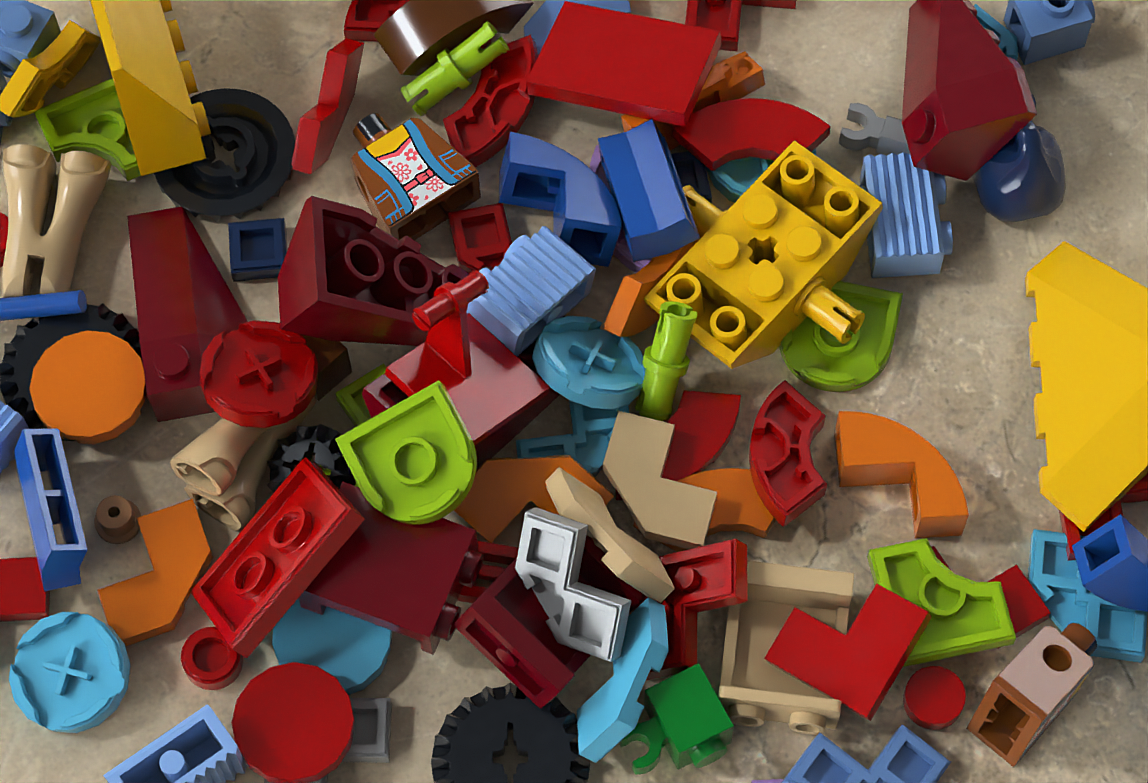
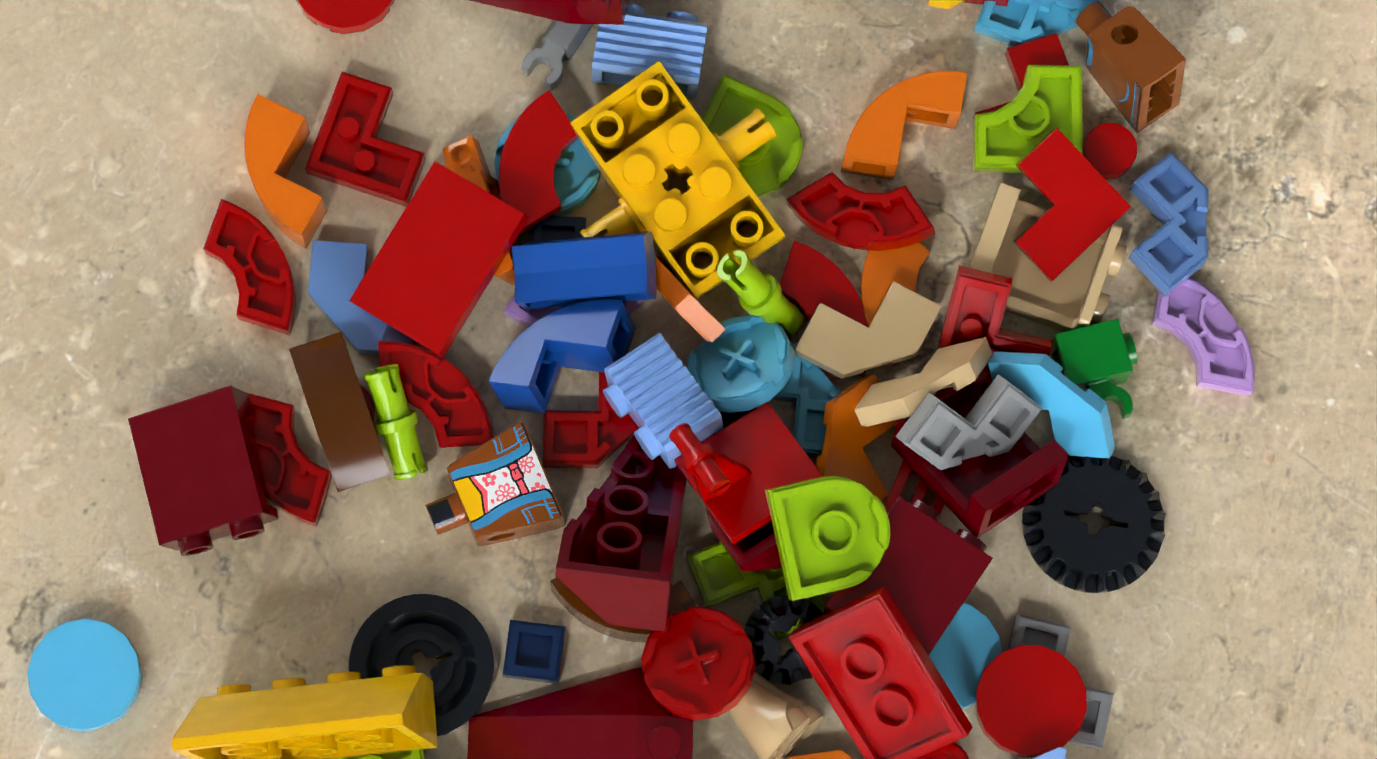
camera: 85 degrees left, 10 degrees up
(322, 123) = (388, 542): red tile -> none

